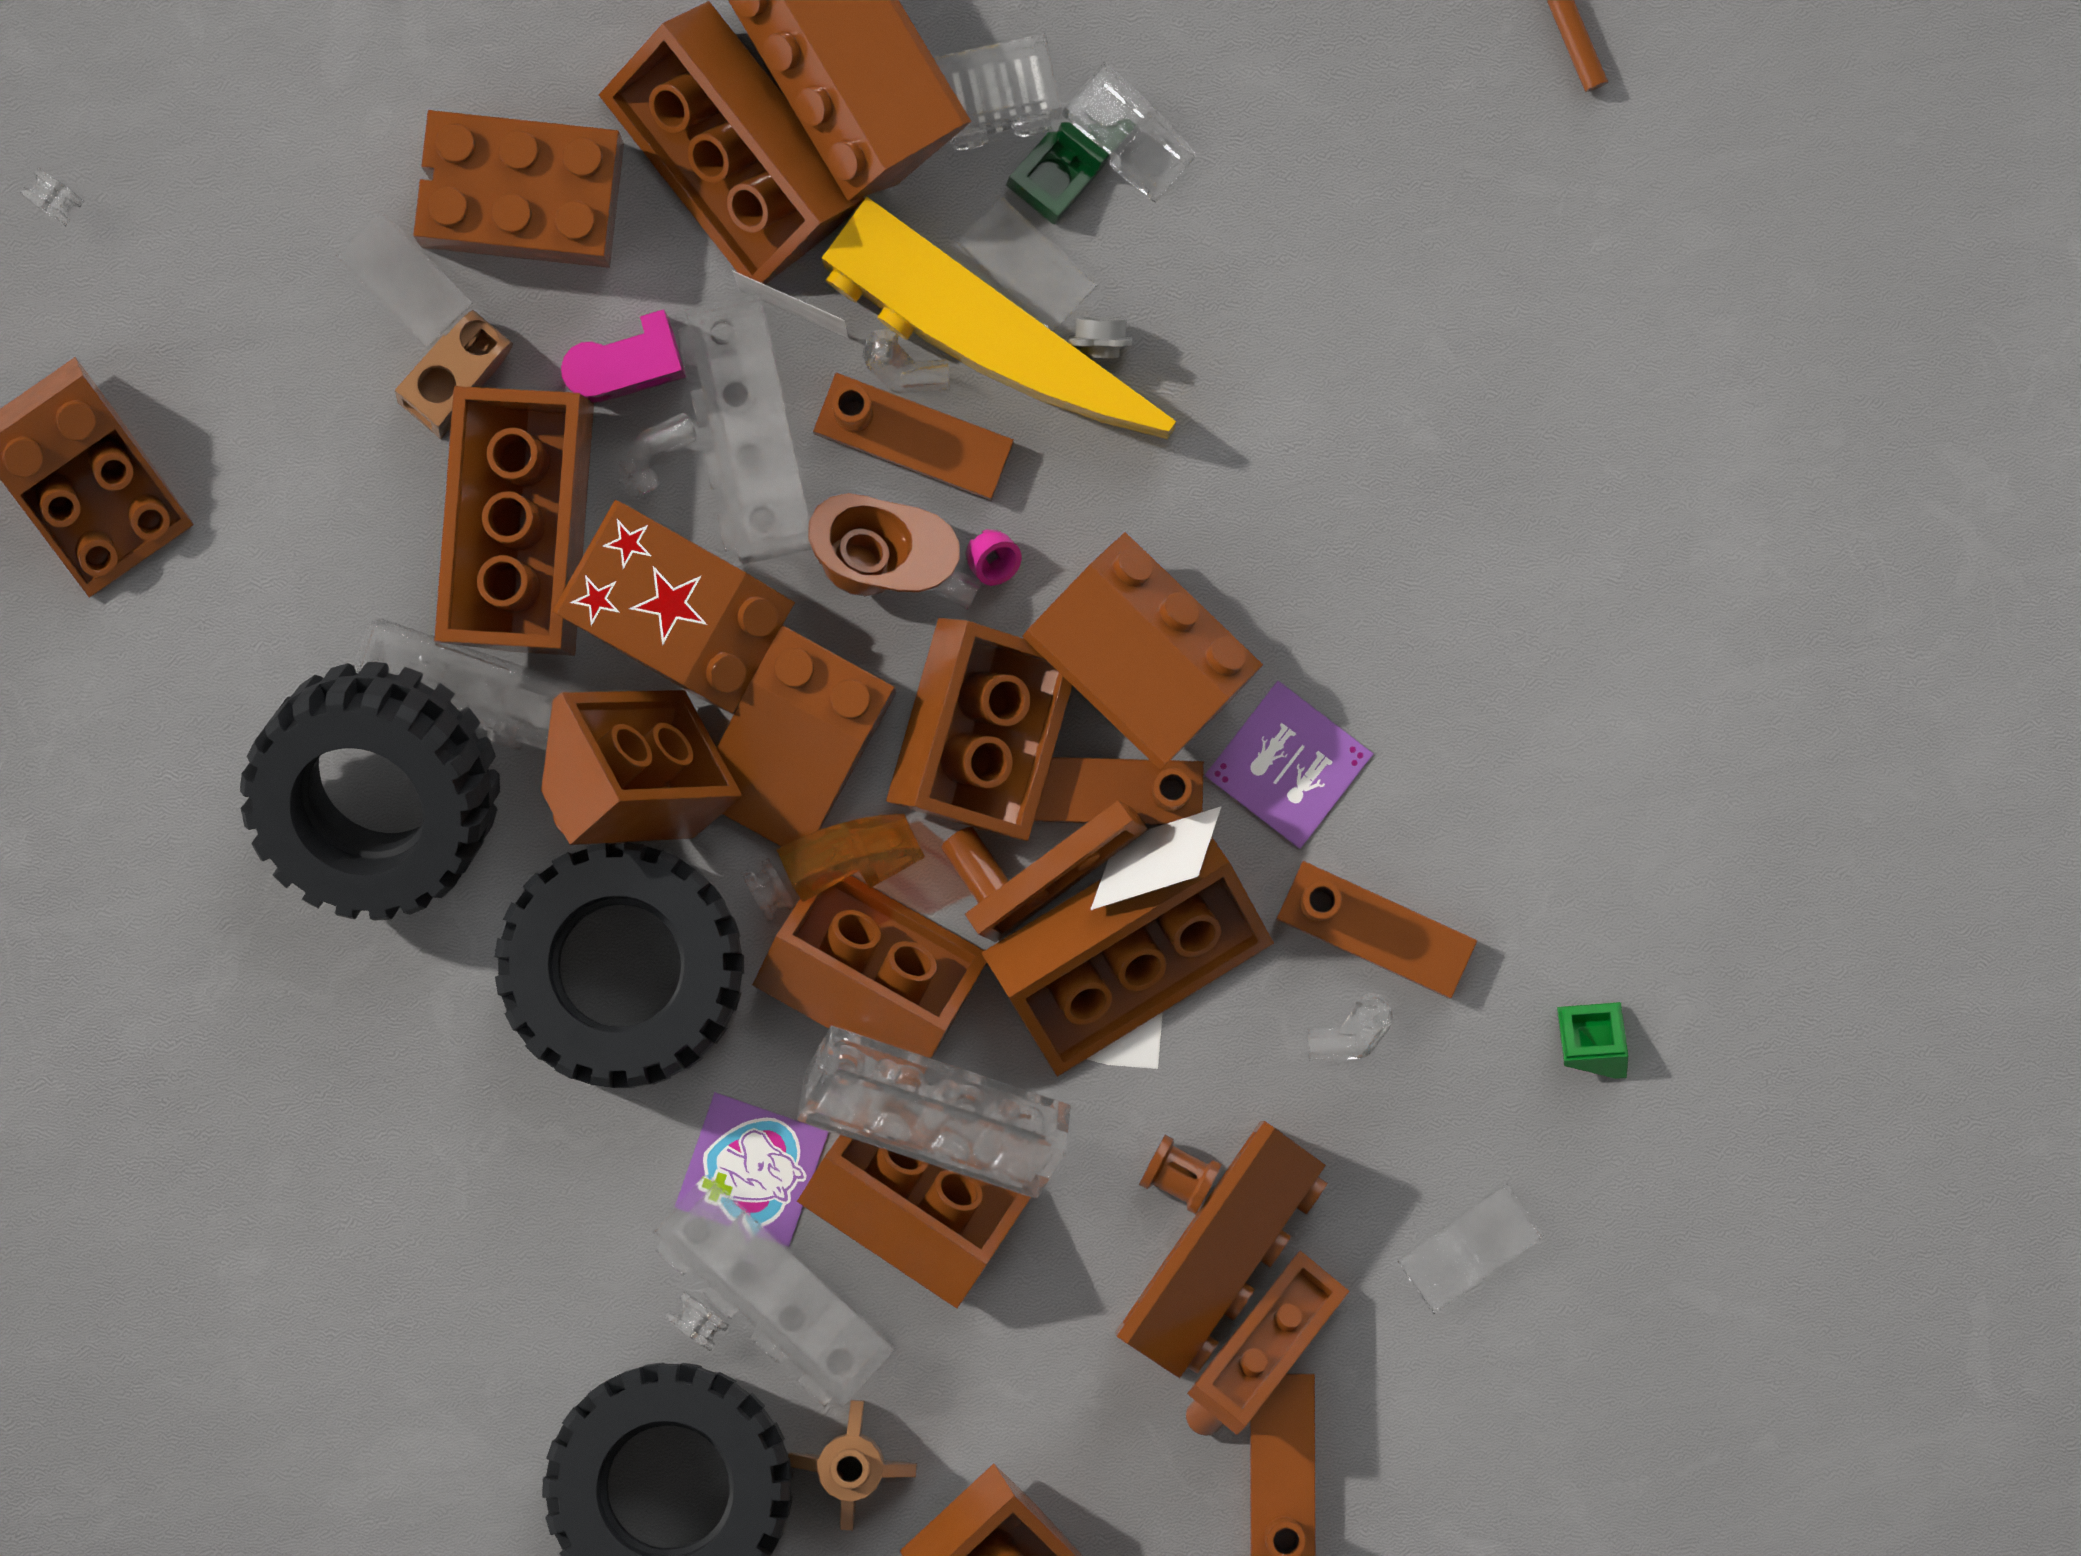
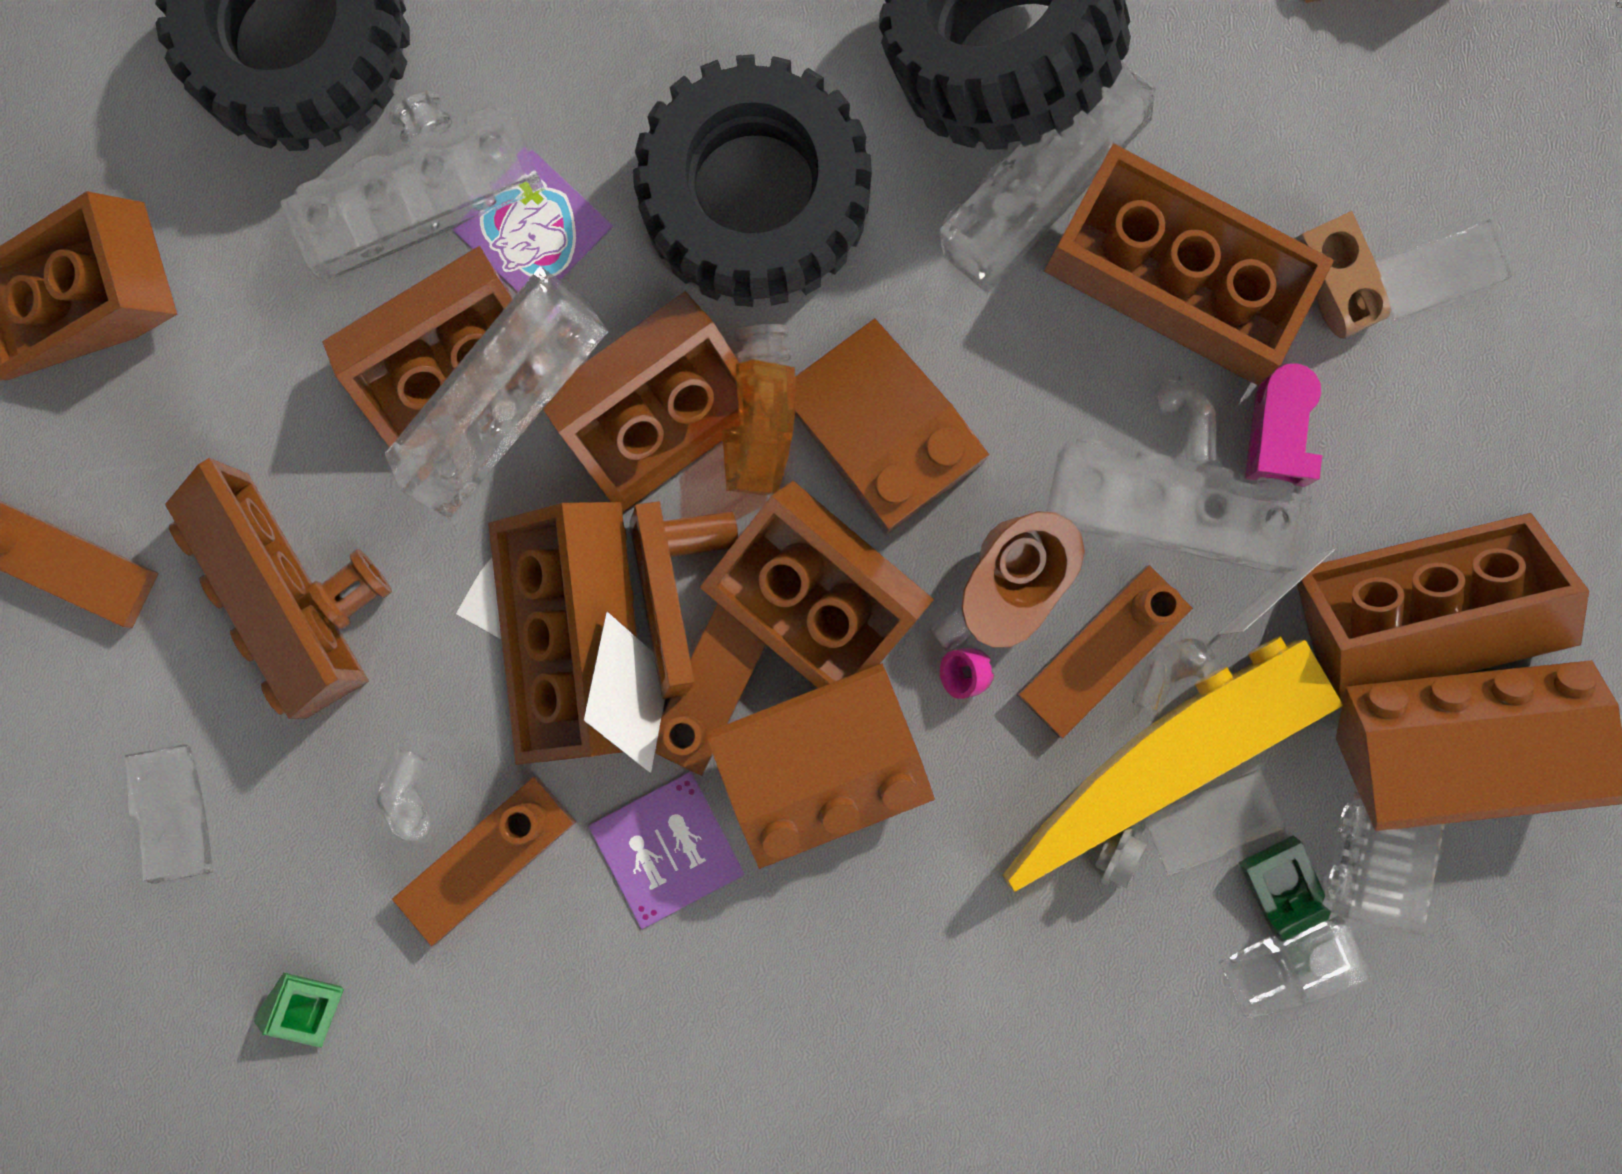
camera: 115 degrees right, 0 degrees up
(519, 188) = (1483, 402): dark orange piece -> none
(632, 768) = (922, 259): dark orange slope -> none
(673, 607) = (1049, 364): dark orange slope -> none
(866, 1451) = (233, 192): medium nougat brick -> none
(1264, 1347) = (159, 594): dark orange piece -> none

